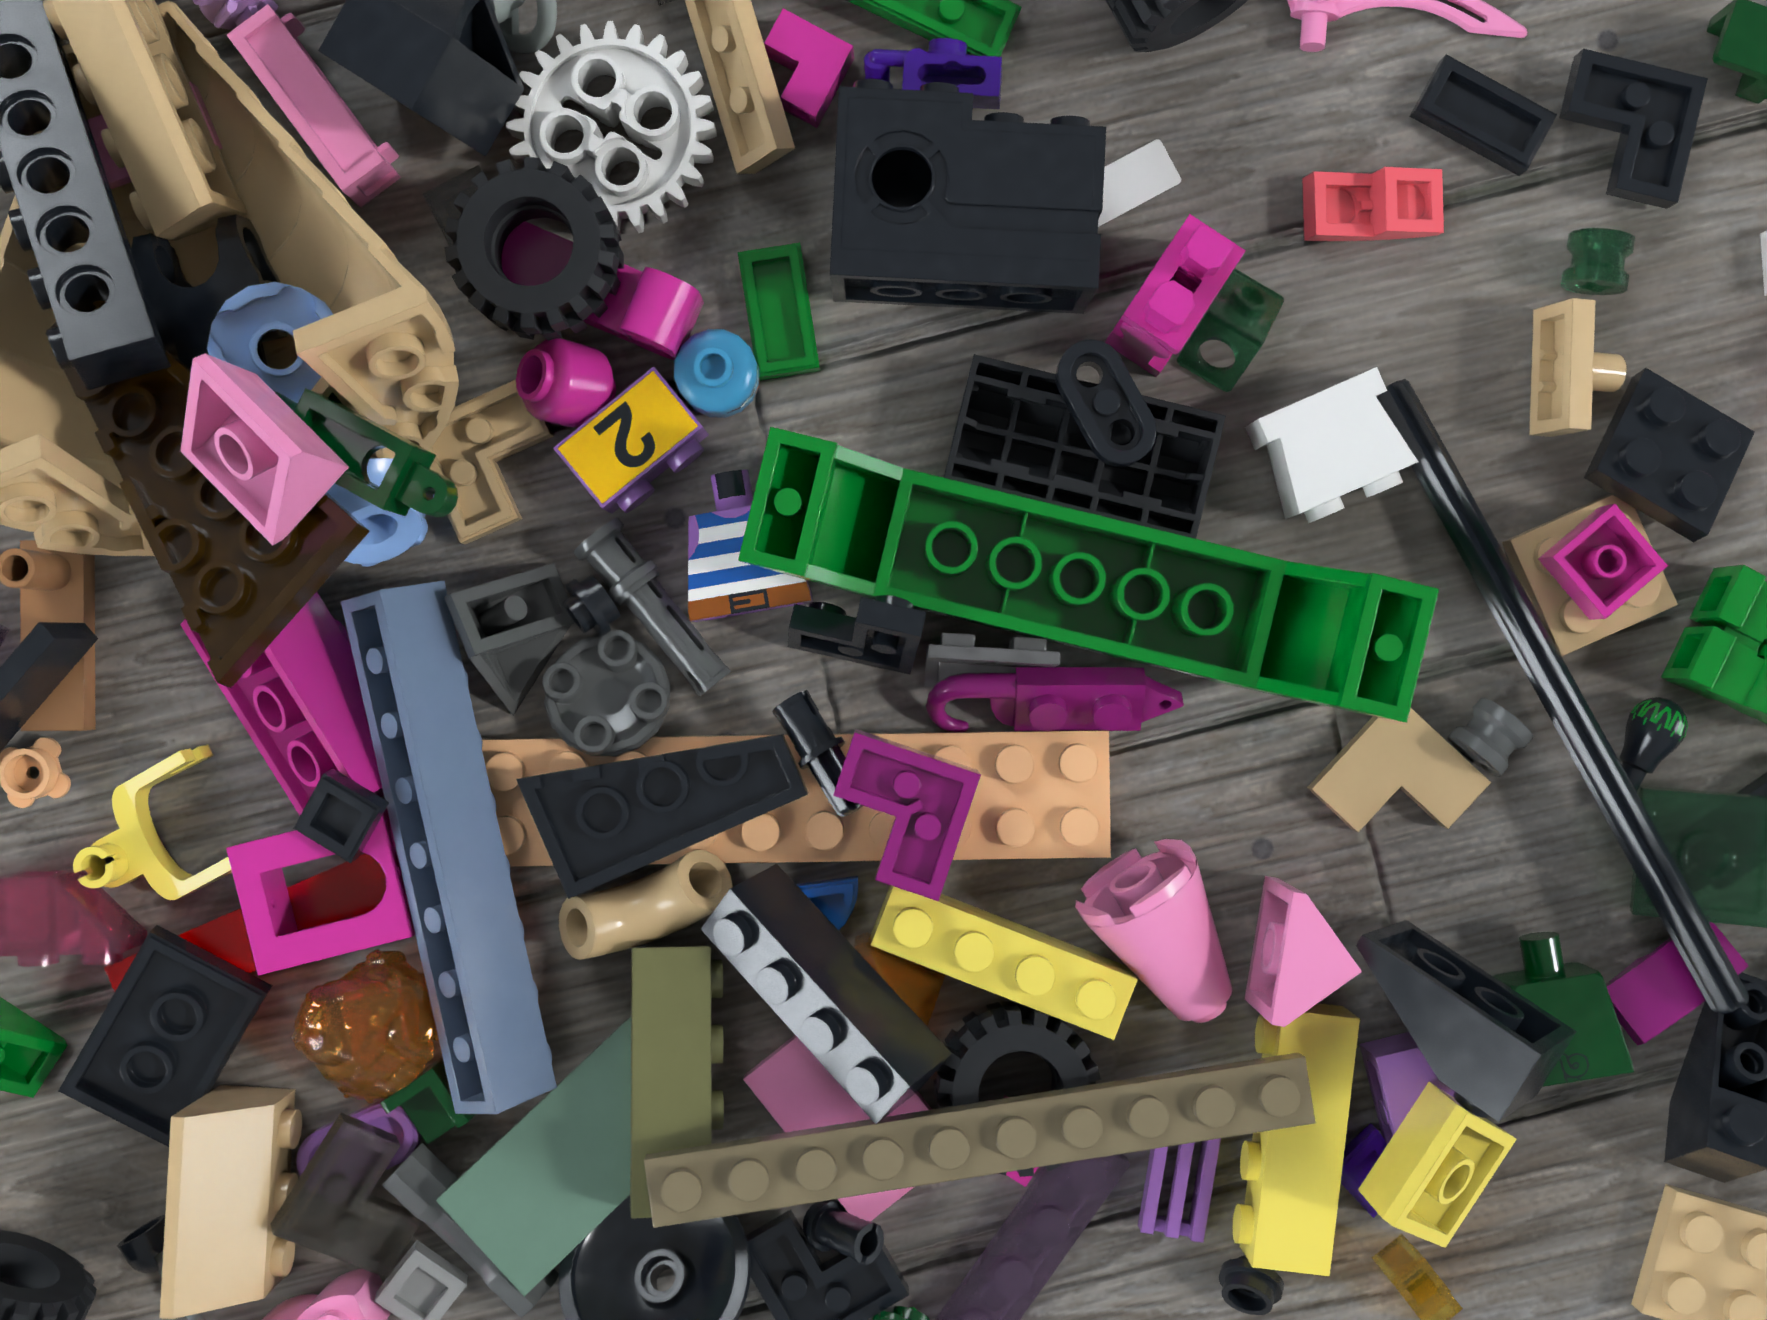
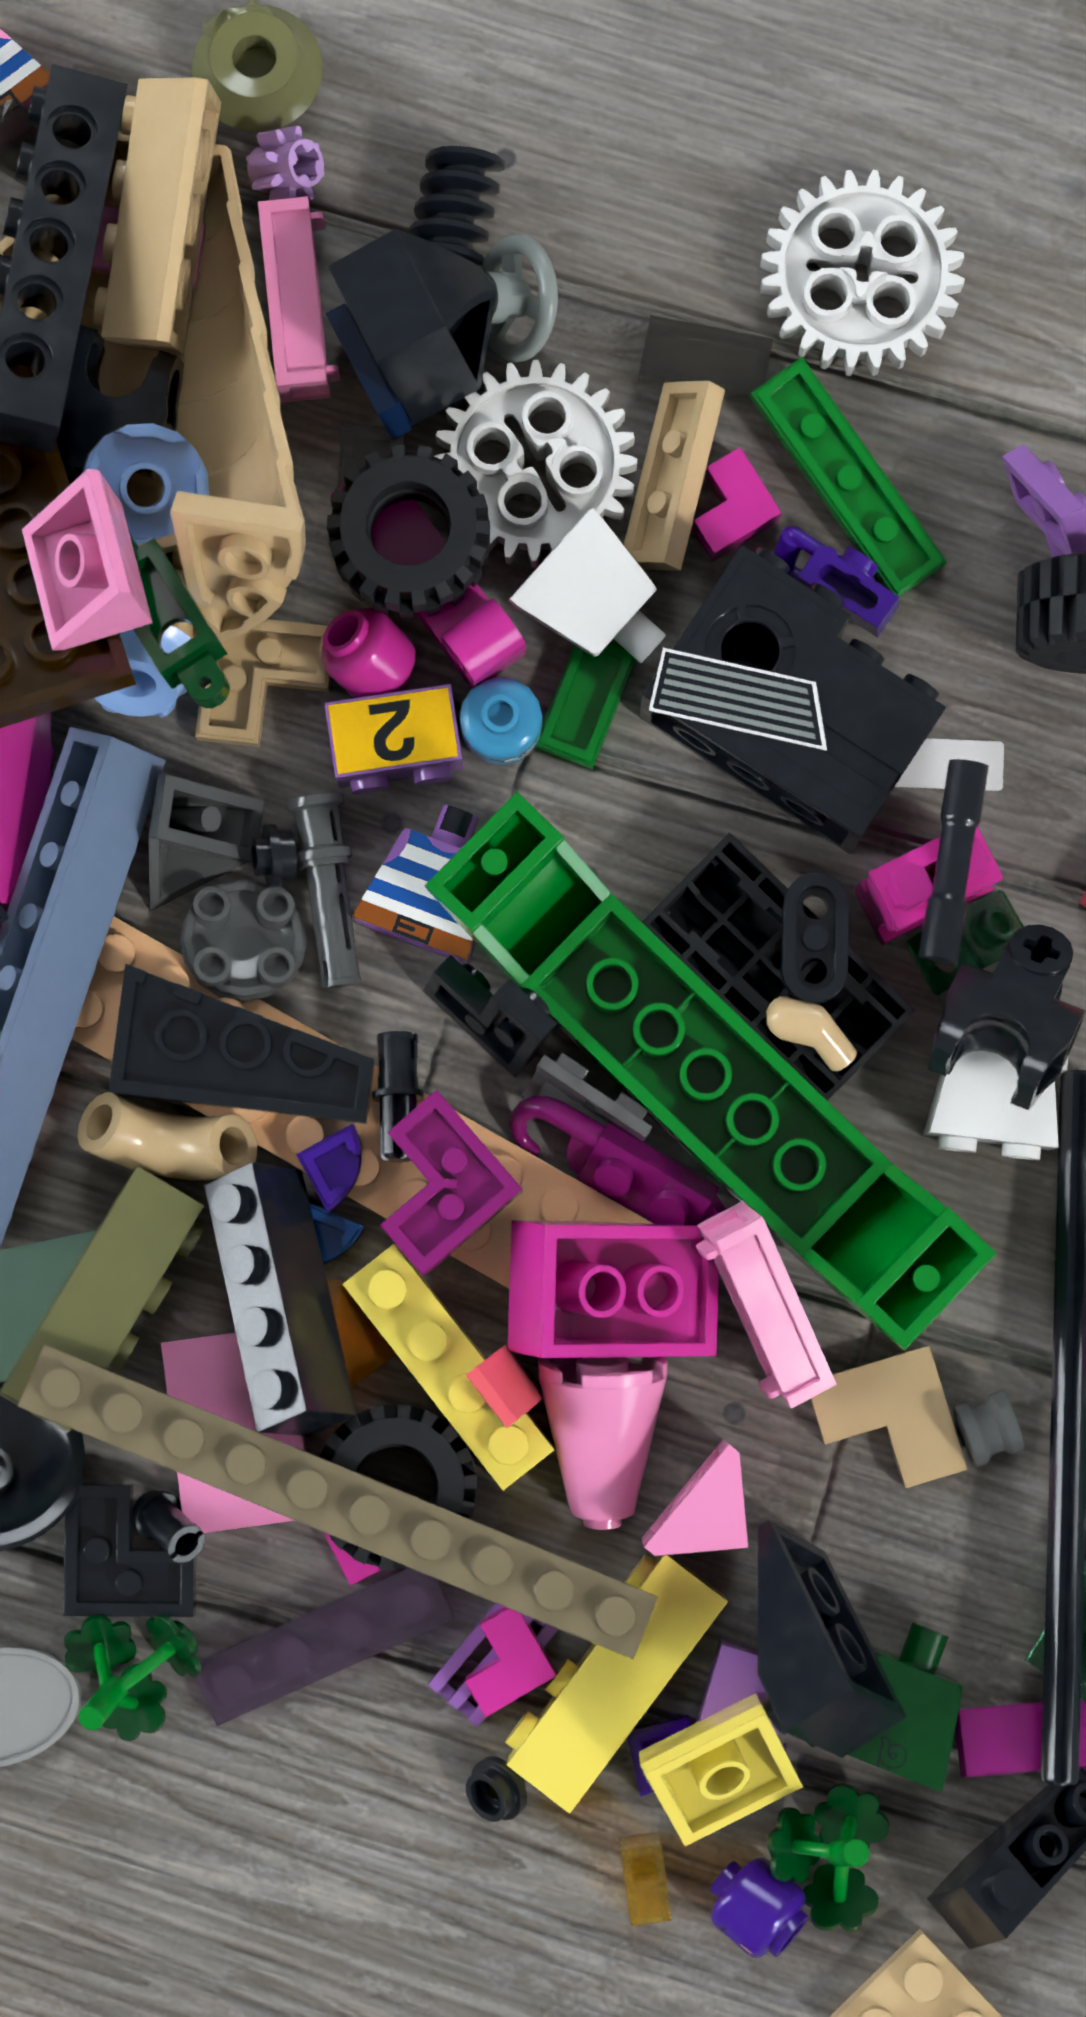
camera: 35 degrees right, 5 degrees down
(417, 129) = (370, 375): none -> dark blue tile
(729, 211) = (591, 592): none -> white torso
(801, 845) = (334, 1165): none -> dark purple tile
(917, 227) = (738, 698): none -> sticker
(1065, 951) = (505, 1386): none -> coral slope
(1105, 812) = (610, 1290): none -> dark pink slope
(1147, 483) = (810, 1026): none -> tan arm
(1185, 219) = (947, 902): none -> black piece
(1209, 1182) = (519, 1665): none -> dark pink piece
(1245, 745) = (766, 1304): none -> bright pink container
(1317, 366) = (1013, 1012): none -> black piece
(1529, 1254) = (757, 1909): none -> dark purple head
(1587, 1193) = (847, 1829): none -> dark green plant

